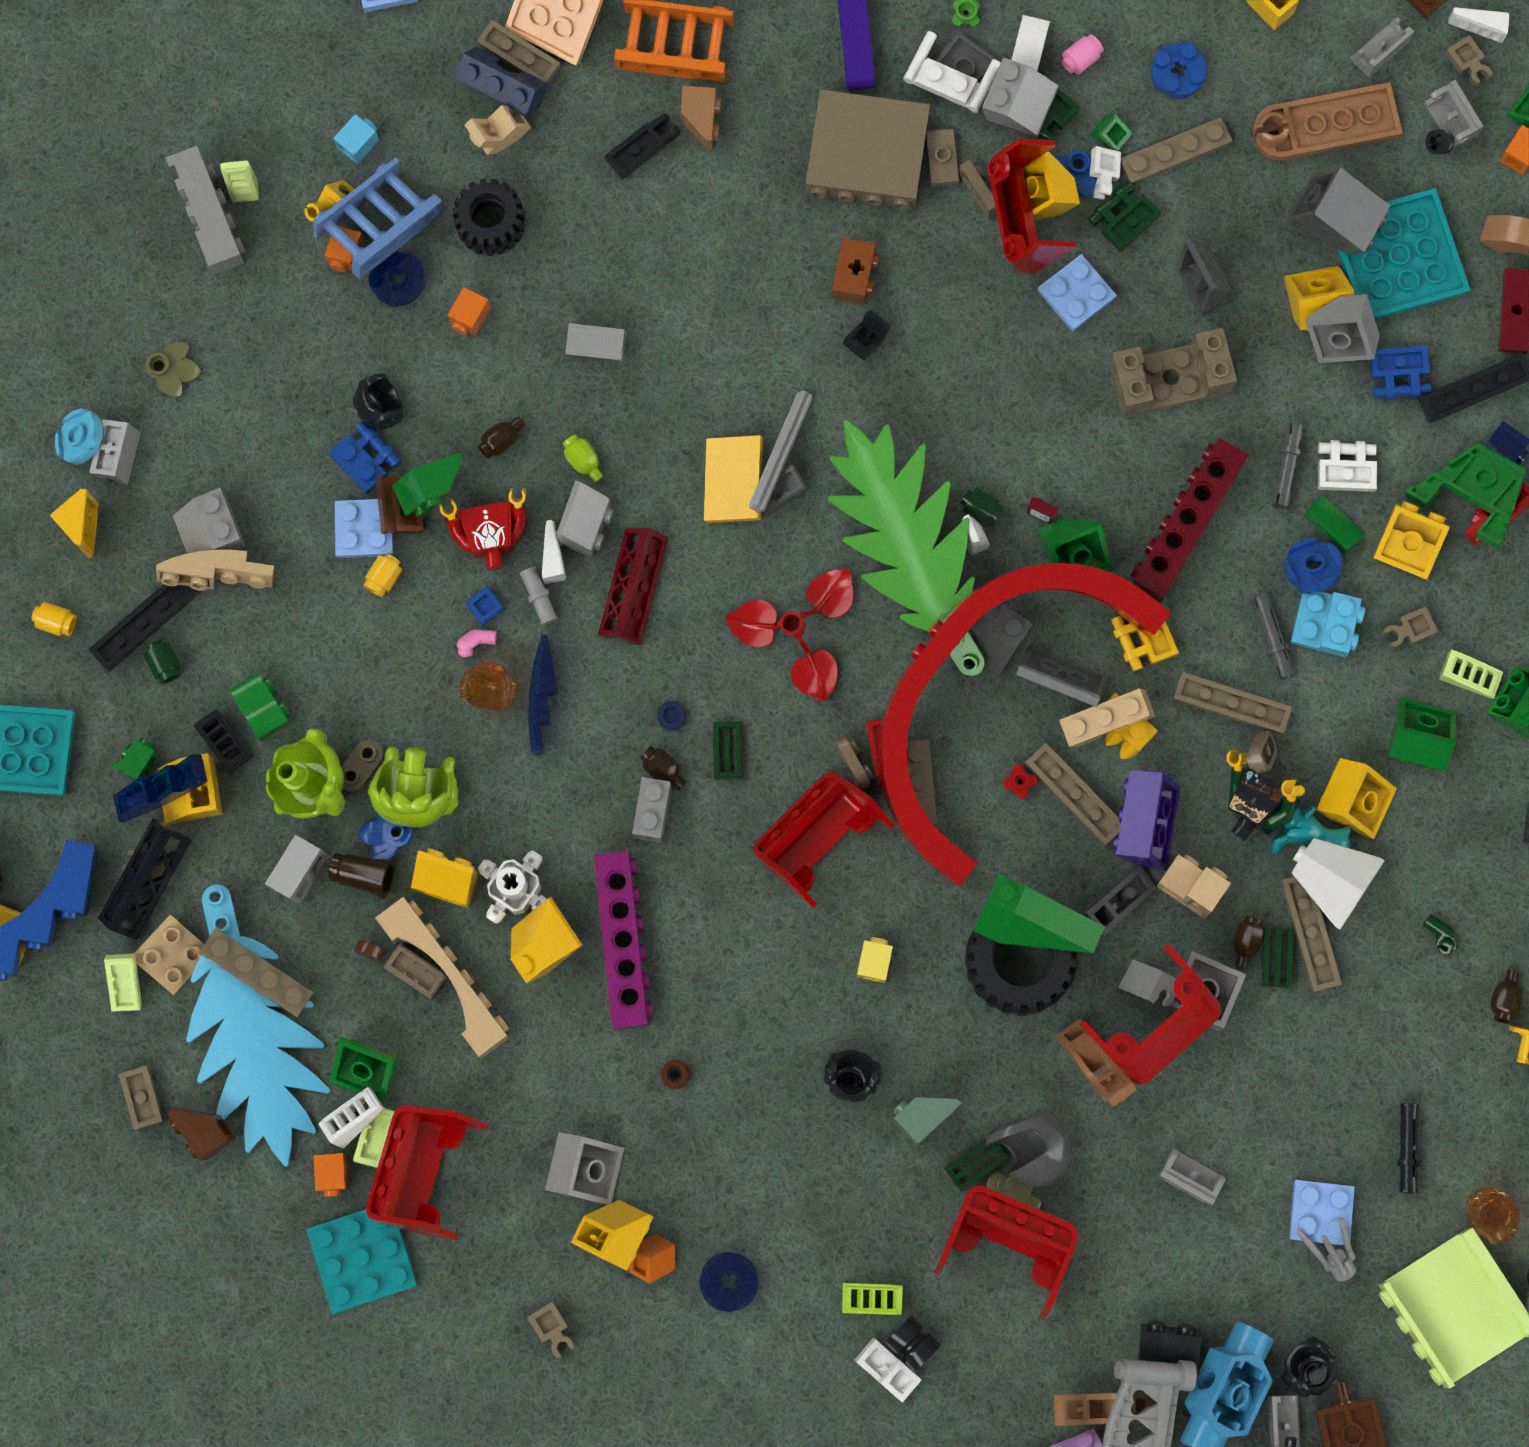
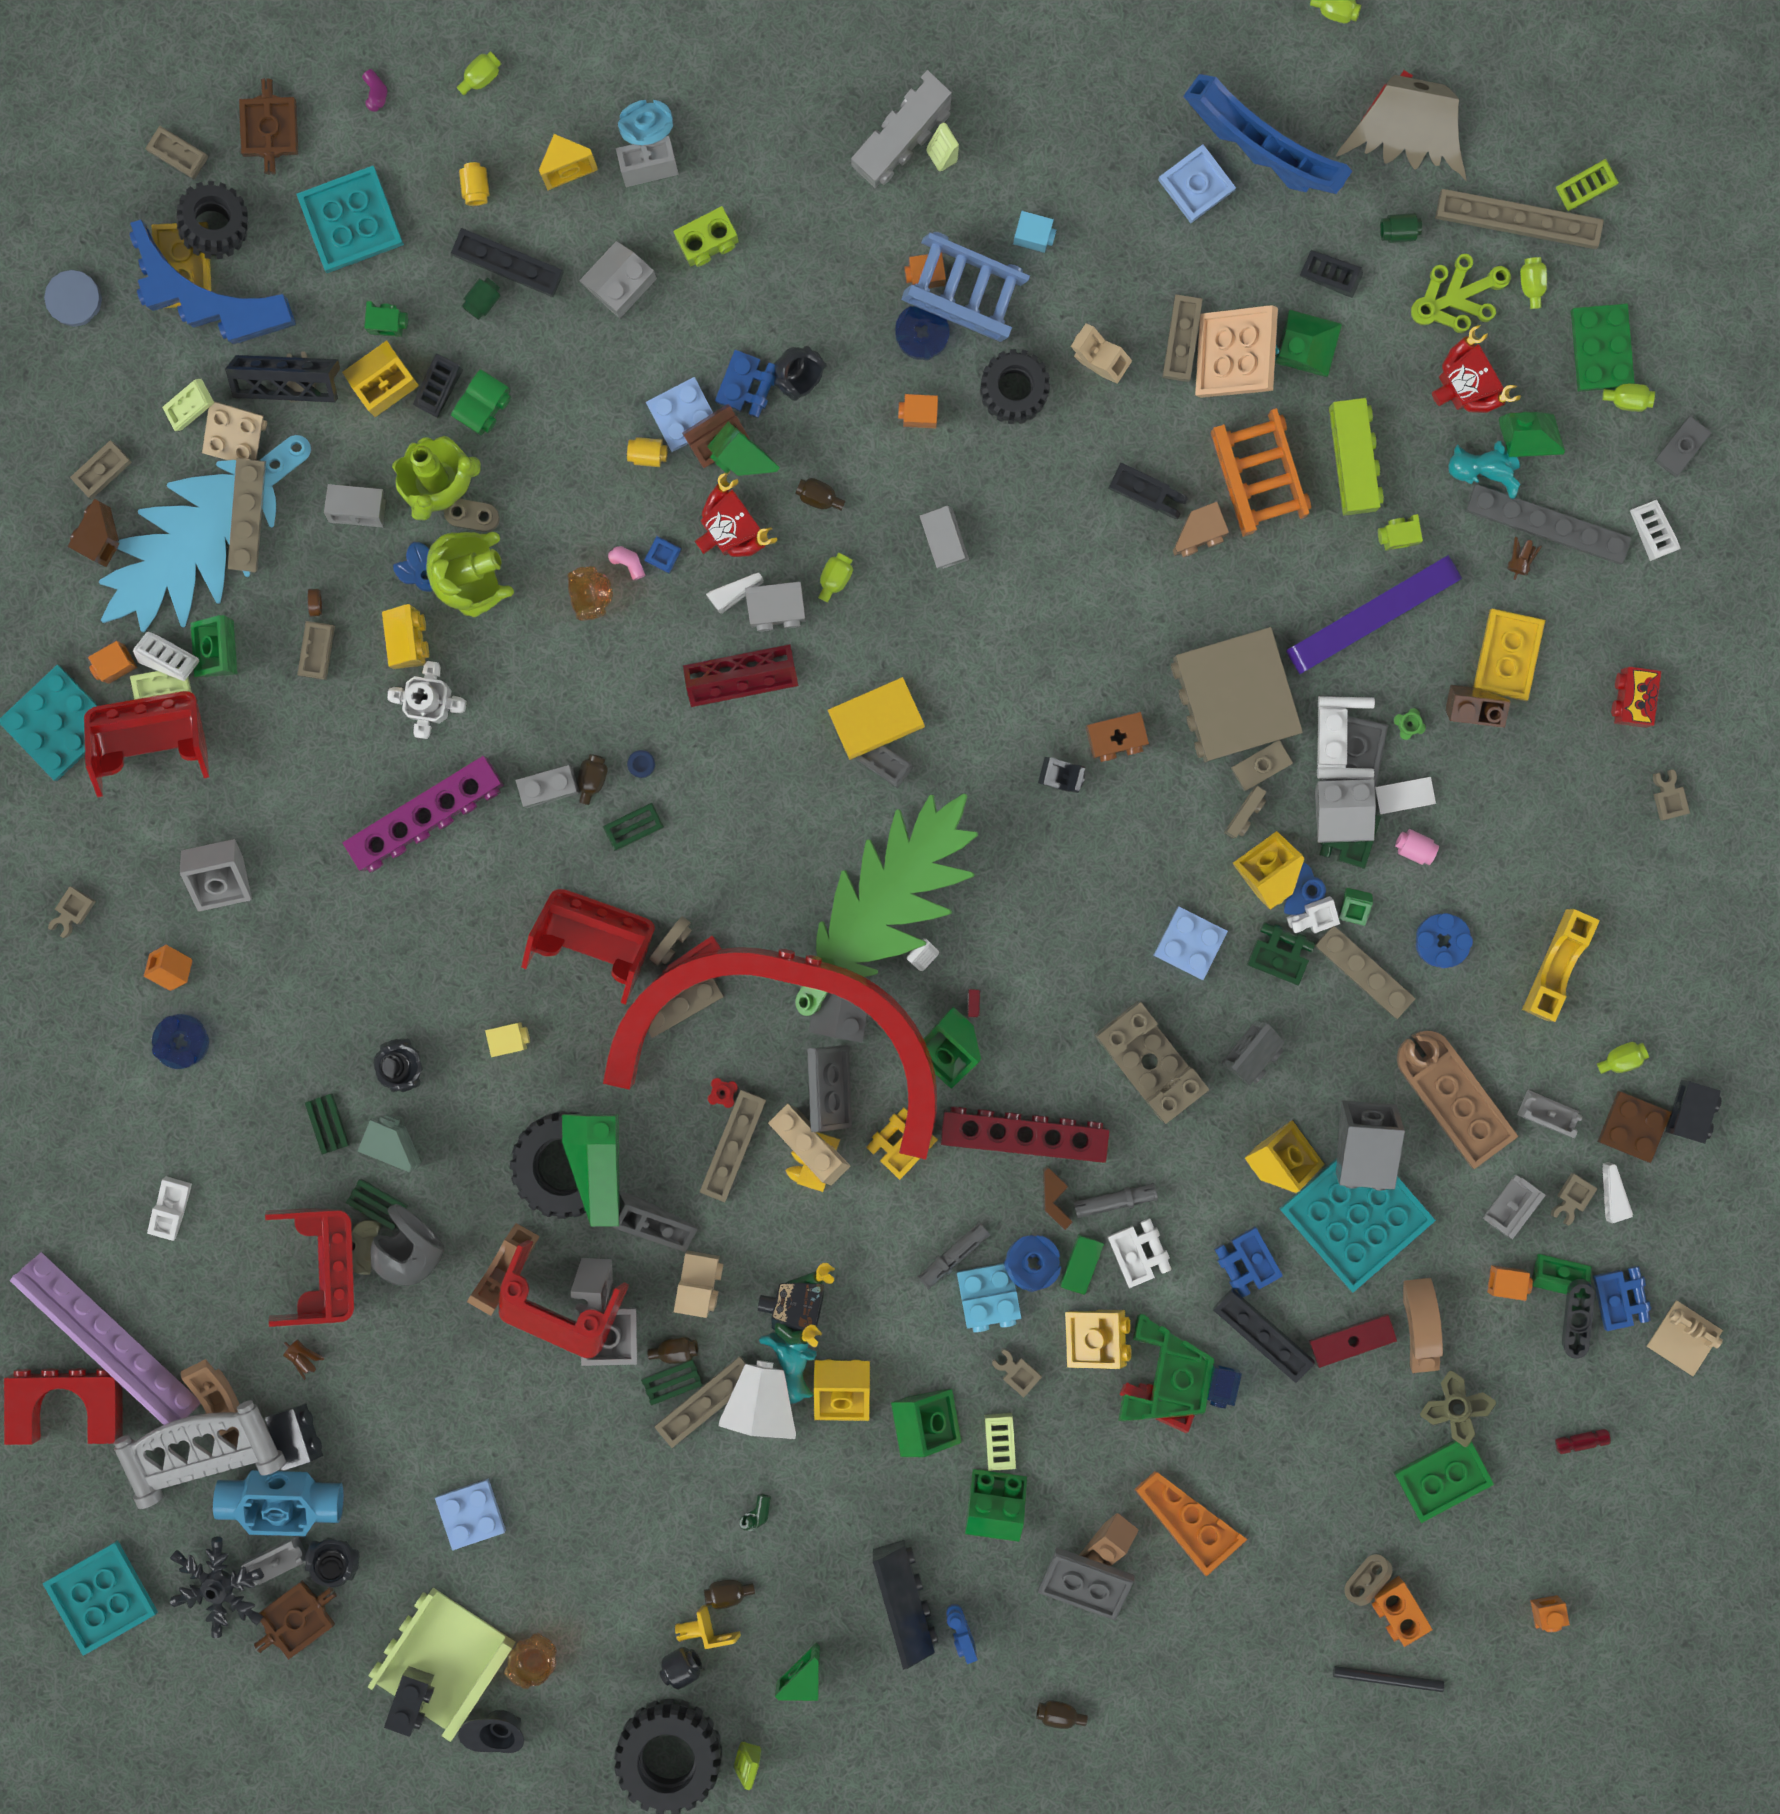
camera: 55 degrees right, 10 degrees up
(160, 788) = (365, 352): clear blue slope -> none
(176, 370) = (749, 177): olive plate -> none
(203, 567) = (576, 292): tan slope -> none
(204, 431) = (702, 230): none -> lime brick
(328, 198) = (964, 235): yellow bracket -> none
(363, 873) = (377, 564): dark brown plant -> none
(482, 1030) = (350, 625): tan arch -> none
(516, 90) = (1143, 356): dark blue arch -> none
(538, 596) = (692, 597): light grey pin -> none
(541, 686) = (614, 638): clear blue slope -> none
(542, 941) = (388, 746): yellow slope -> none
(613, 1232) = (168, 926): yellow slope -> none
(669, 1067) = (324, 914): reddish brown plate -> none
(756, 624) = (759, 797): red plant -> none
(780, 451) = (913, 749): light grey axle -> none
(885, 1164) = (317, 1128): none -> dark green tile
(897, 1299) = (215, 1181): lime slope -> none
(913, 1343) = (199, 1216): black wheel -> none
(981, 506) = (952, 948): dark green brick -> none
(1015, 210) = (1235, 855): red windscreen -> none
(1087, 1311) = (297, 1355): none -> reddish brown piece
(1147, 819) = (736, 1218): dark purple slope -> none
(1191, 1177) = (448, 1392): light grey hinge -> none
(1232, 703) = (877, 1245): dark tan plate -> none
(1250, 517) = (1052, 1189): none -> reddish brown slope
(1262, 752) = (842, 1292): dark tan plate -> none
(1338, 1261) = (433, 1546): light grey plant -> none
(1344, 330) = (1260, 1198): light grey slope -> none
(1409, 1148) = (549, 1568): black pin -> none
(1431, 144) = (1487, 1211): black bush -> none
(1482, 1355) = (409, 1700): none -> black brick

